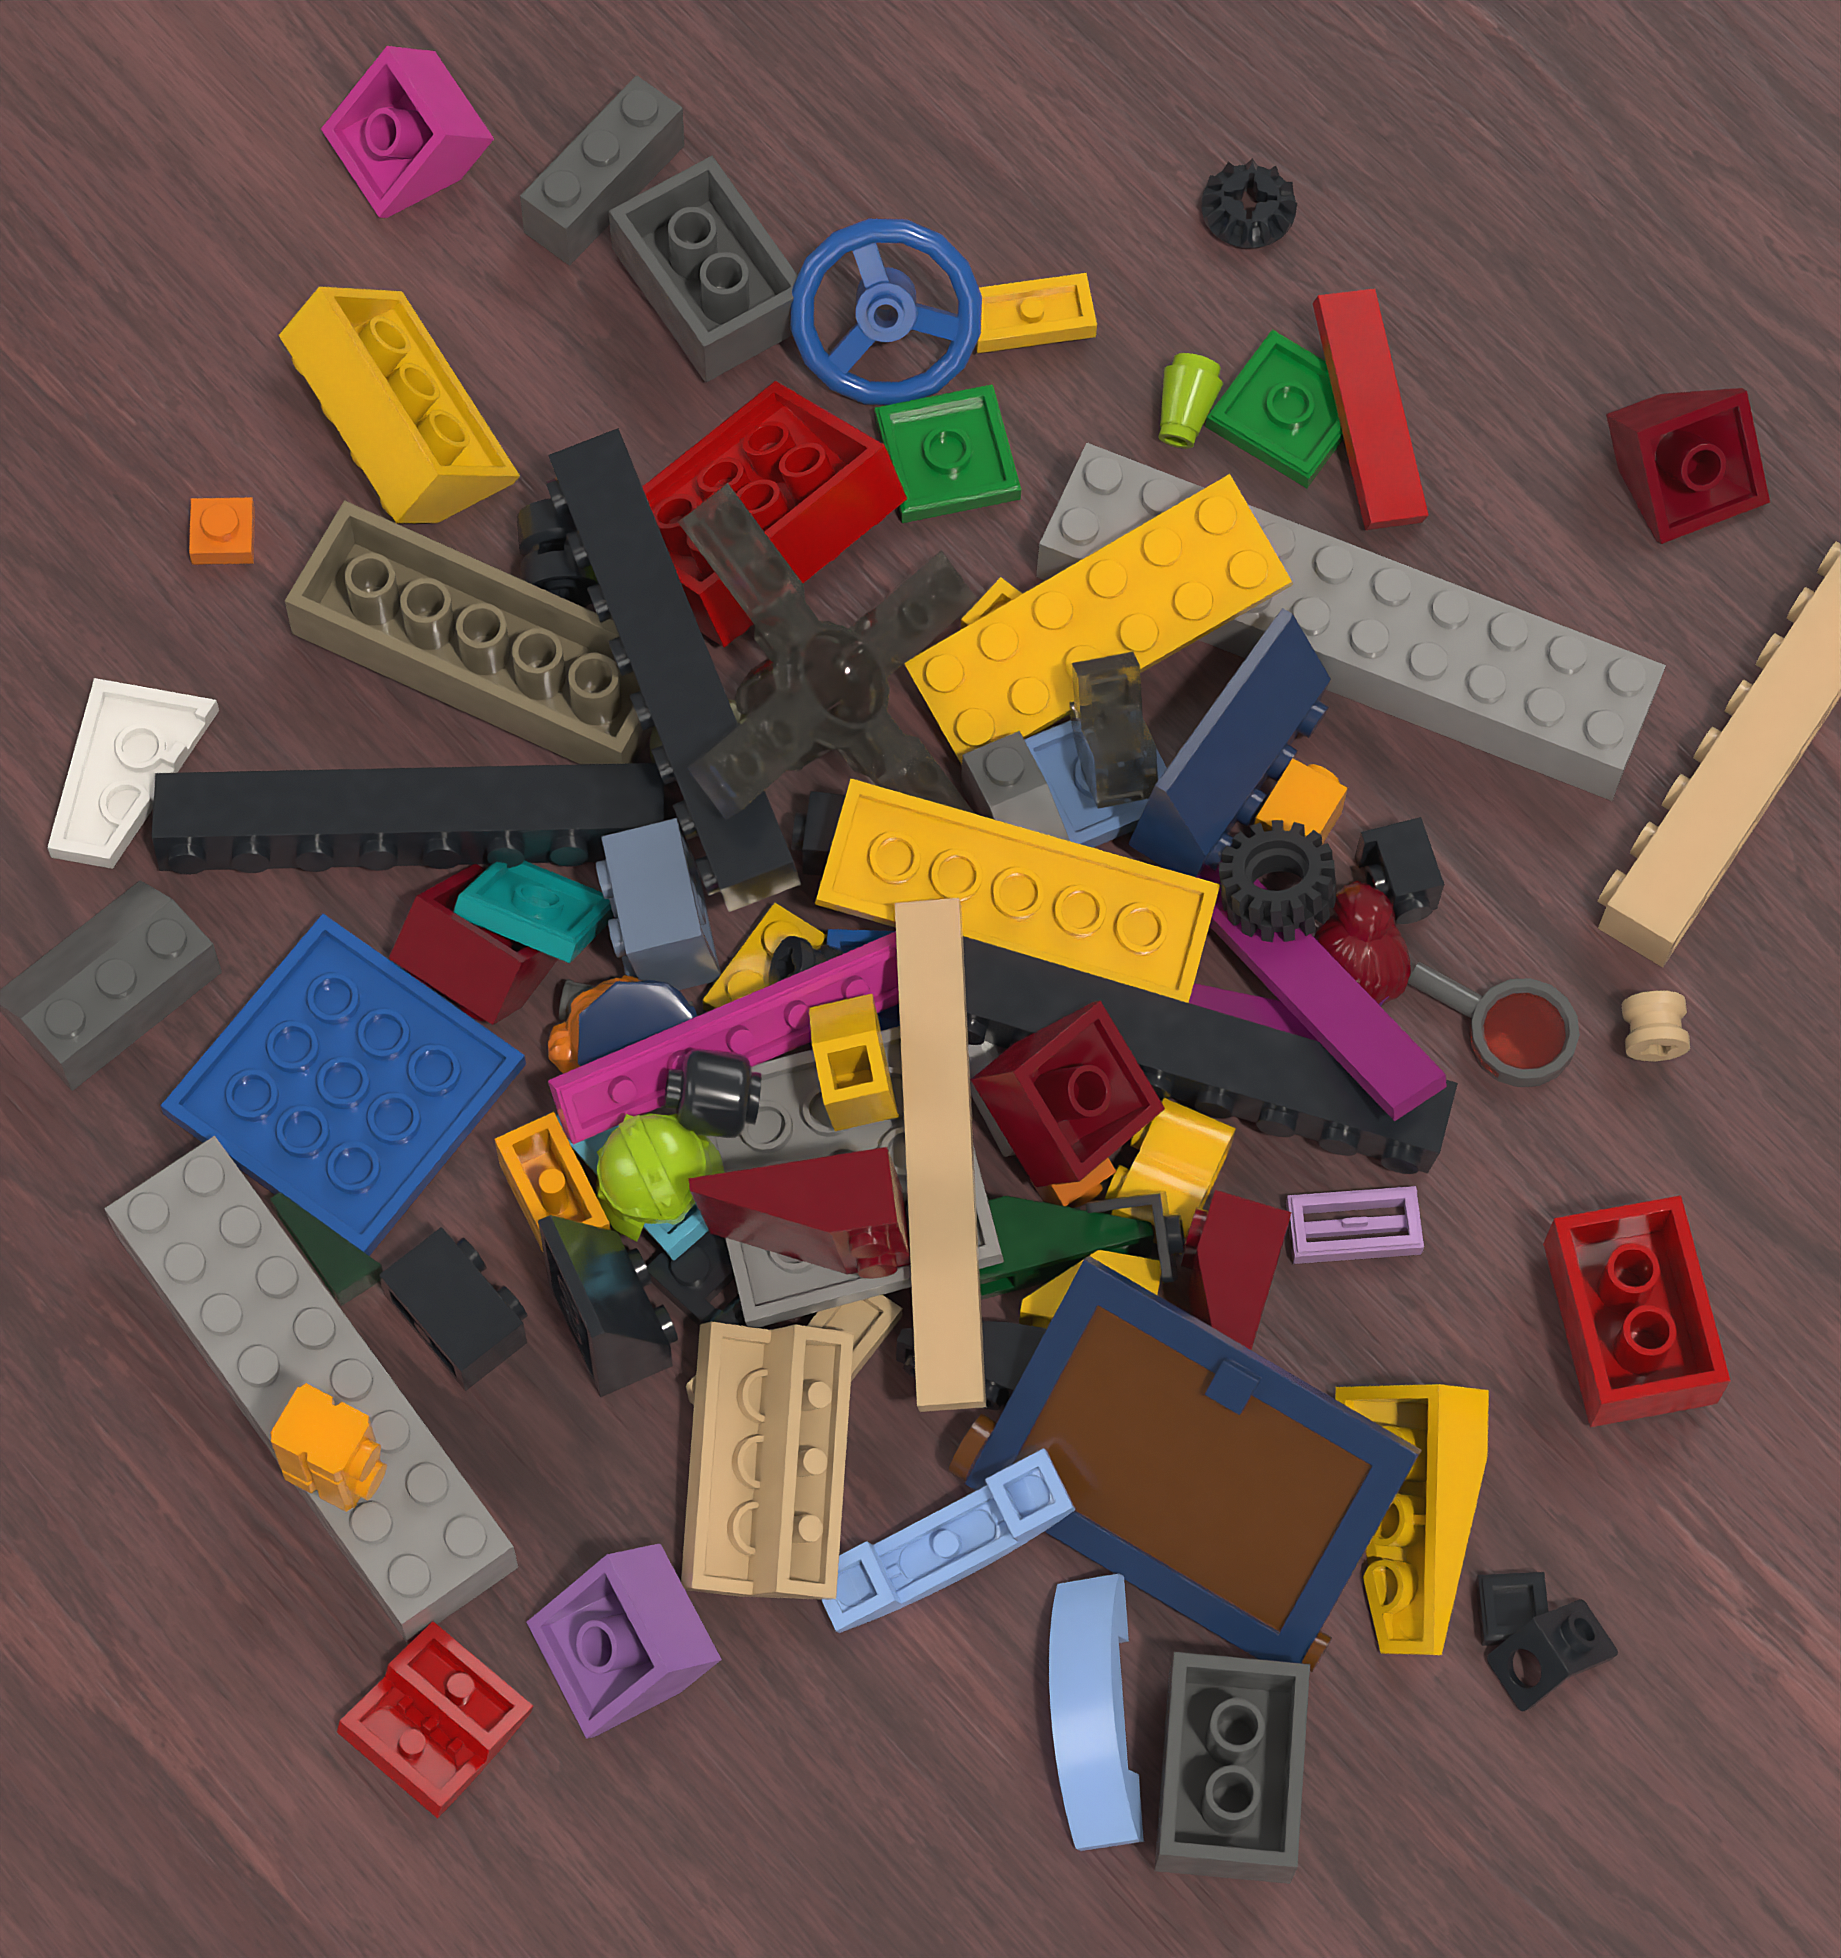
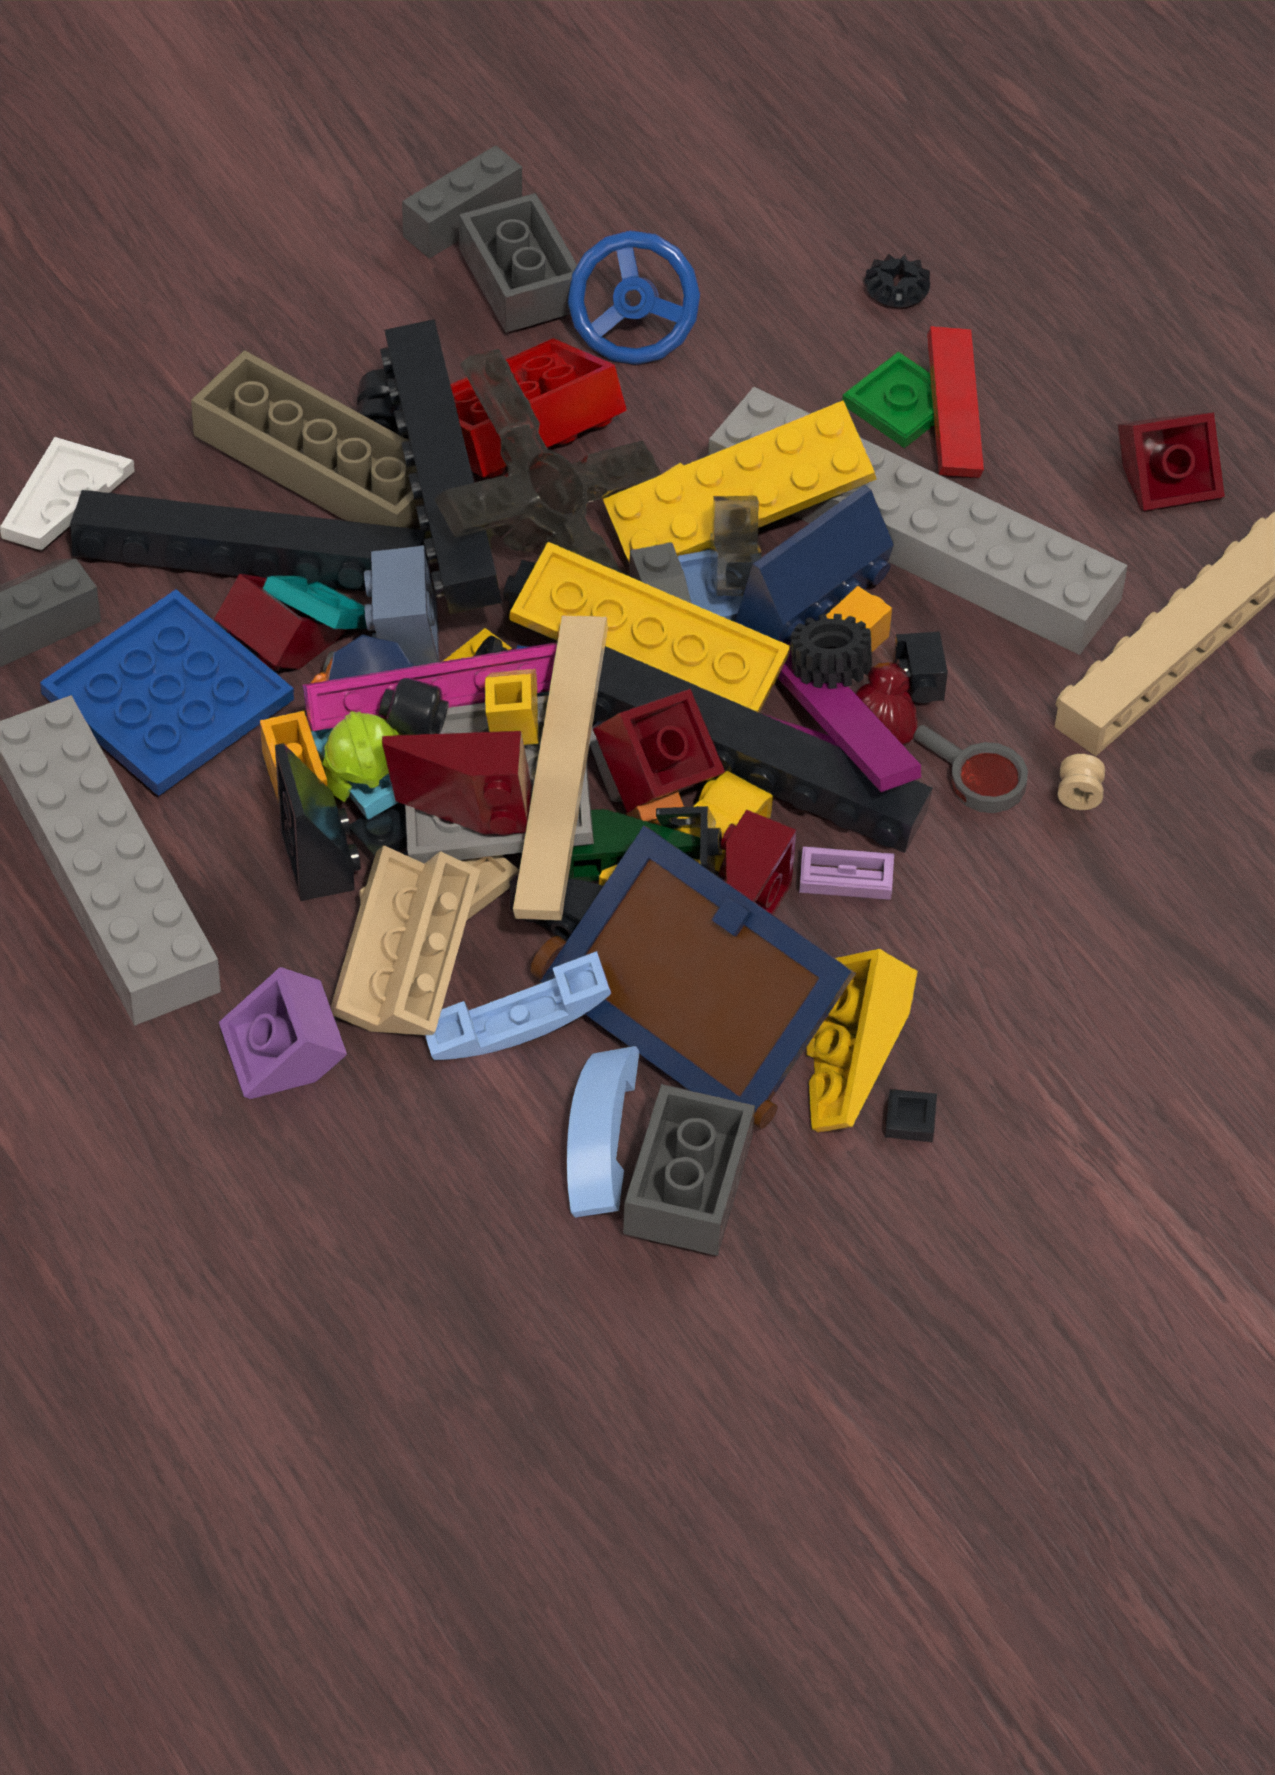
camera: 10 degrees right, 15 degrees down
(222, 531) = (160, 372): orange plate -> none
(328, 1448) = (101, 863): light orange brick -> none
(336, 1260) = (142, 792): clear green piece -> none
(396, 403) = (293, 311): yellow slope -> none
(406, 130) = (336, 163): dark pink slope -> none
(435, 1719) = (142, 1068): red slope -> none
(455, 1307) = (212, 827): black brick -> none
(949, 452) = (662, 394): green tile -> none
(1036, 313) = (736, 320): yellow plate -> none
(1187, 398) = (832, 379): lime cone -> none
(1564, 1644) = (937, 1134): black bracket -> none
(1636, 1311) = (1031, 942): red brick -> none

